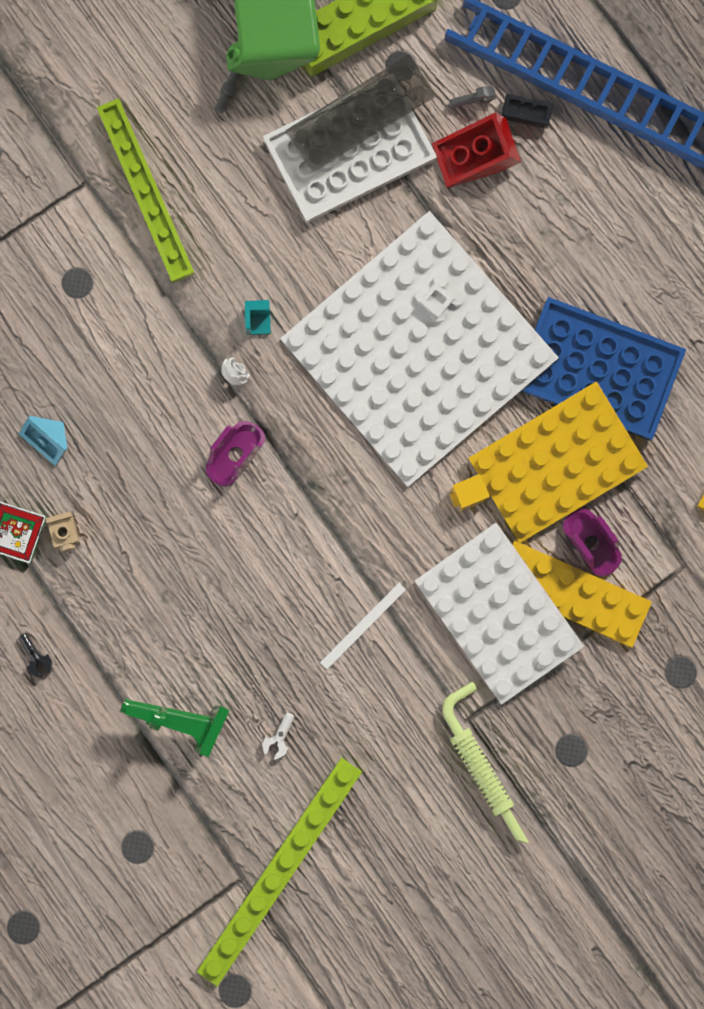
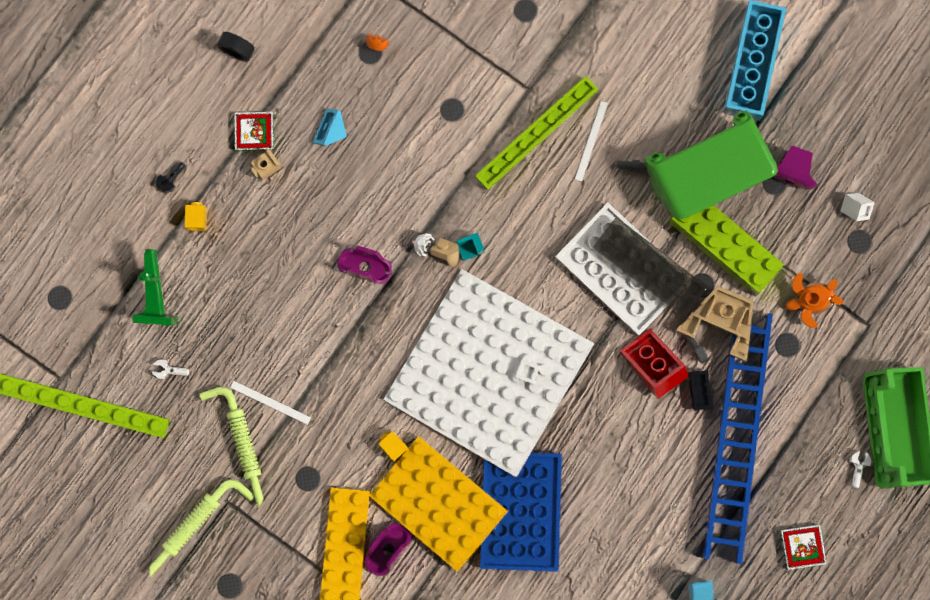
camera: 75 degrees right, 0 degrees up
(98, 639) = (195, 217): none -> yellow brick
(178, 131) = (591, 140): none -> white sticker
(252, 347) = (446, 250): none -> tan plate
(396, 674) = (241, 438): none -> yellowish green piece
(447, 43) = (726, 312): none -> tan wing
(499, 613) = (310, 498): white plate -> none

